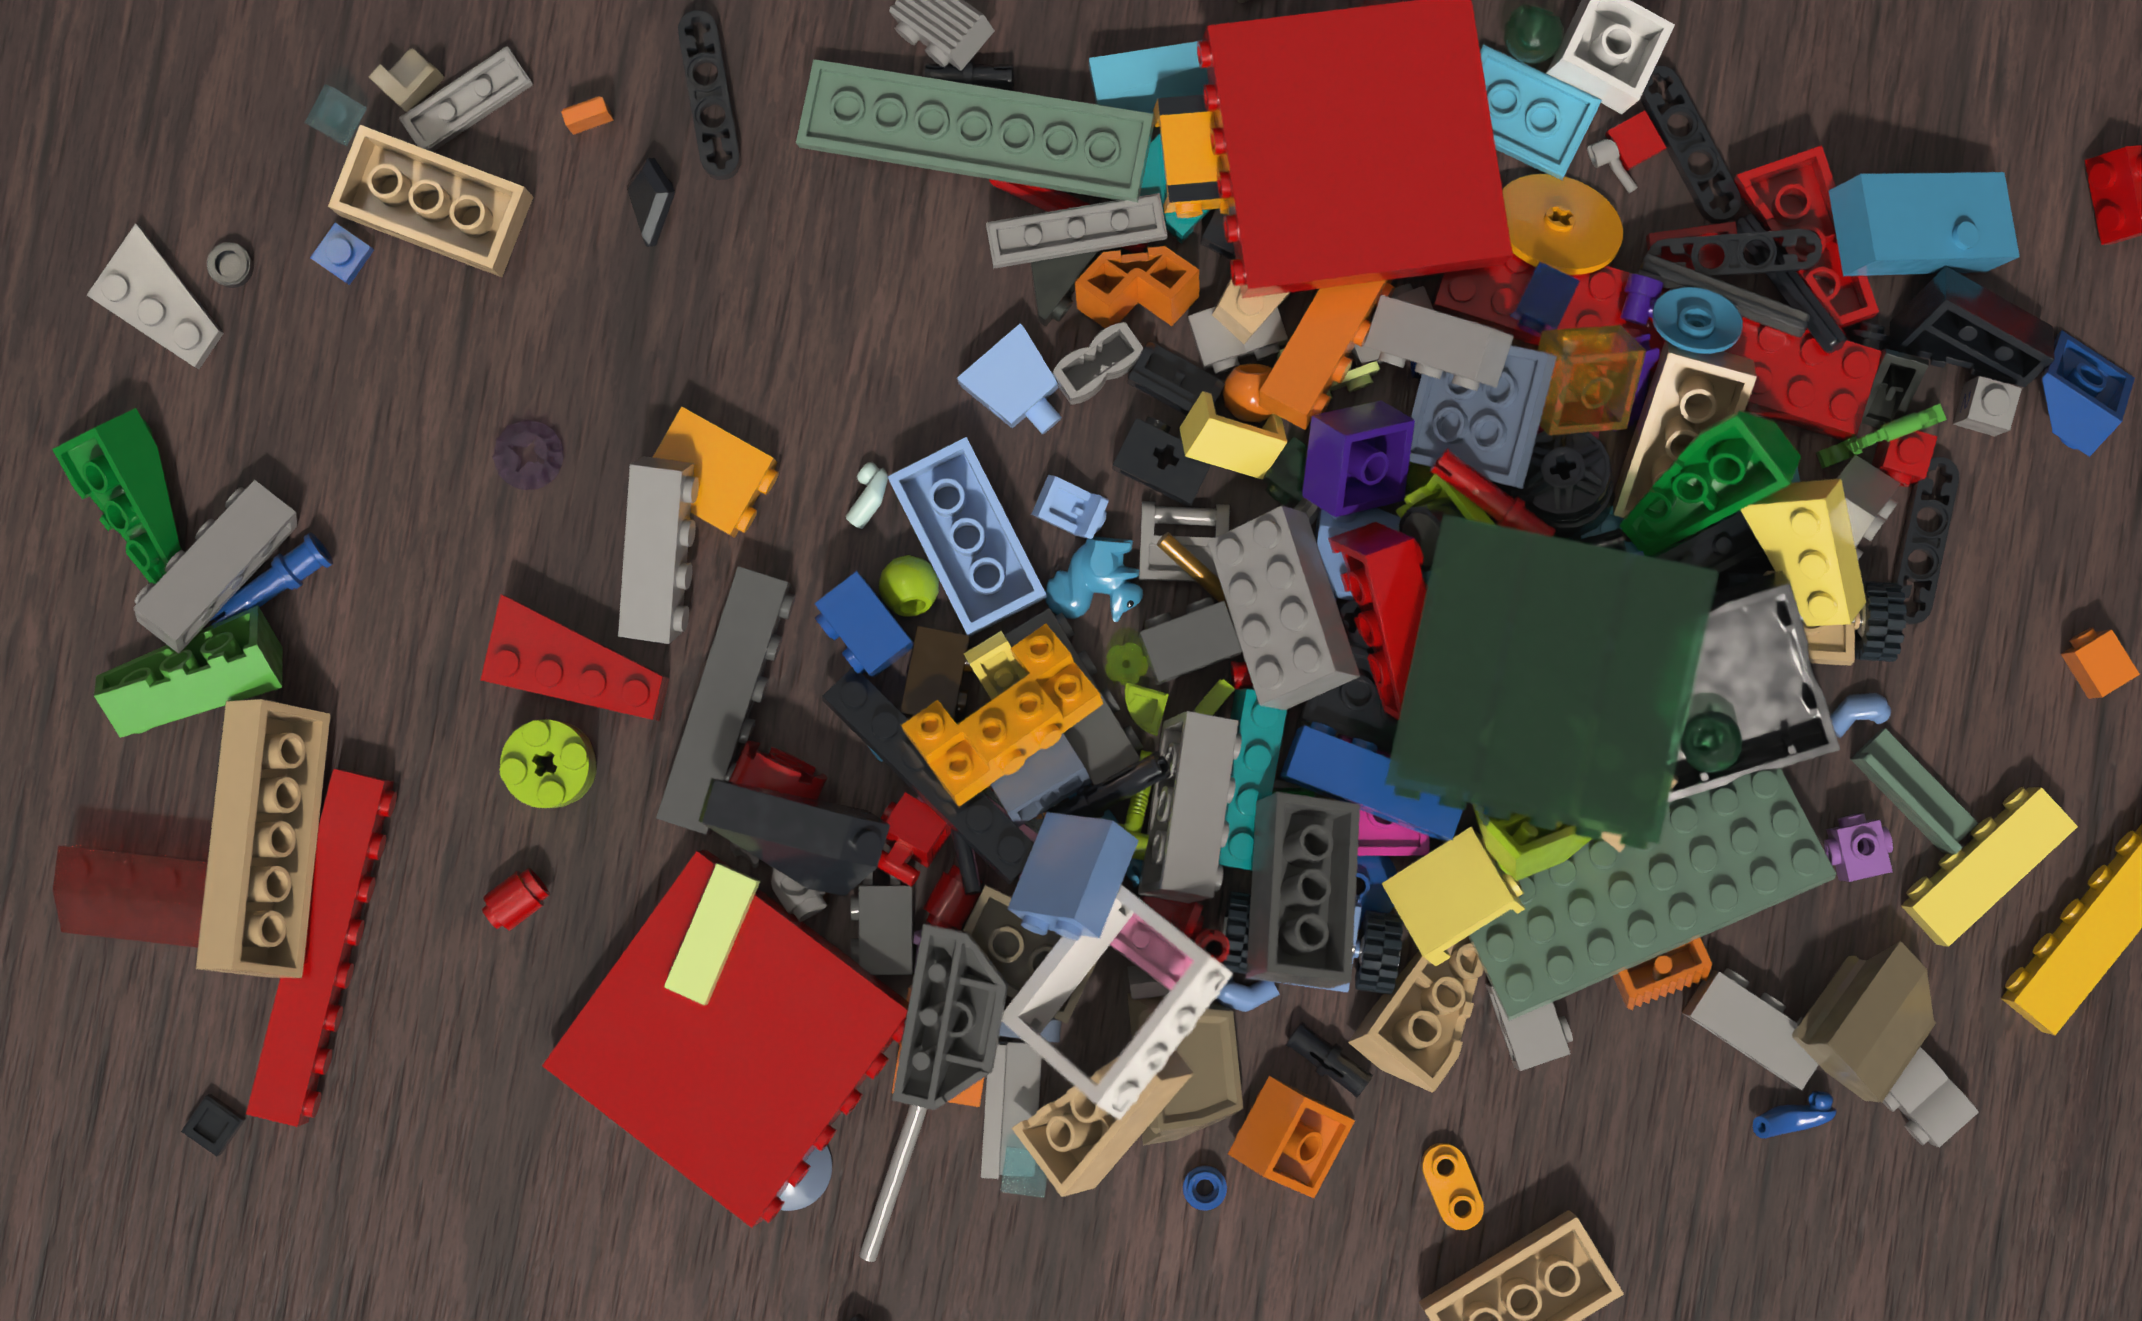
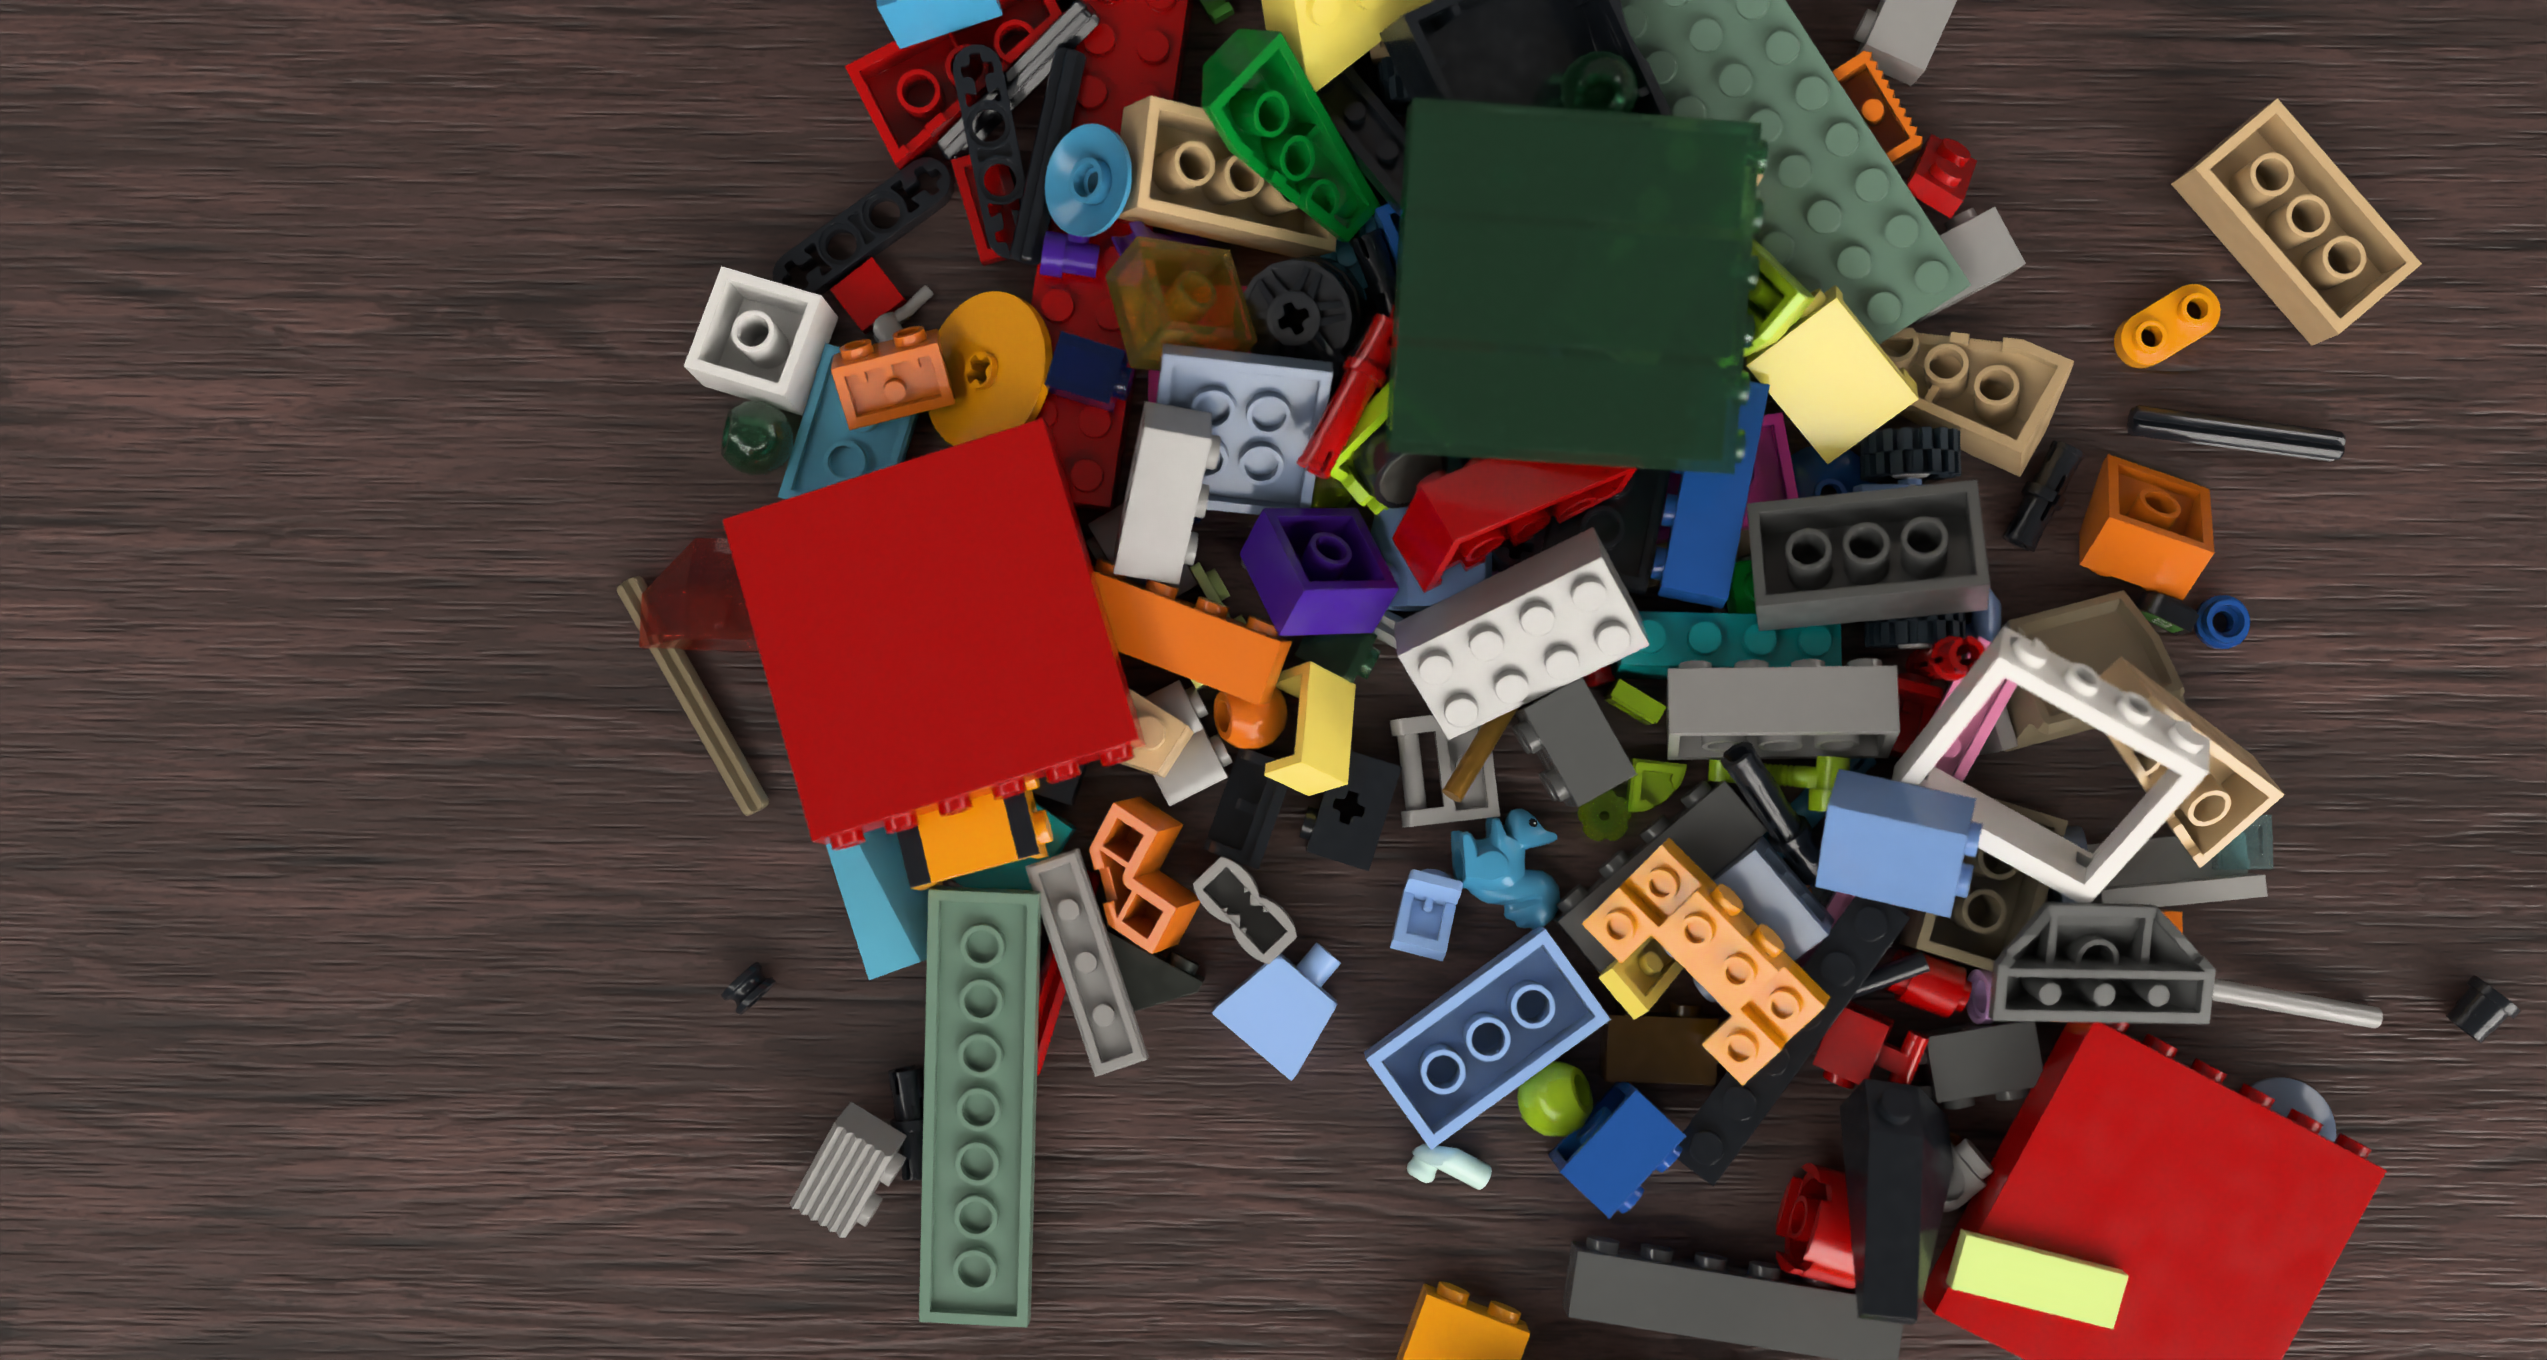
camera: 95 degrees left, 0 degrees up
(1220, 1140) = (2167, 613): none -> black tile
(1356, 1226) = (2236, 433): none -> black axle
(1565, 147) = (891, 377): none -> orange bracket
(1602, 1016) = (1942, 174): none -> red plate

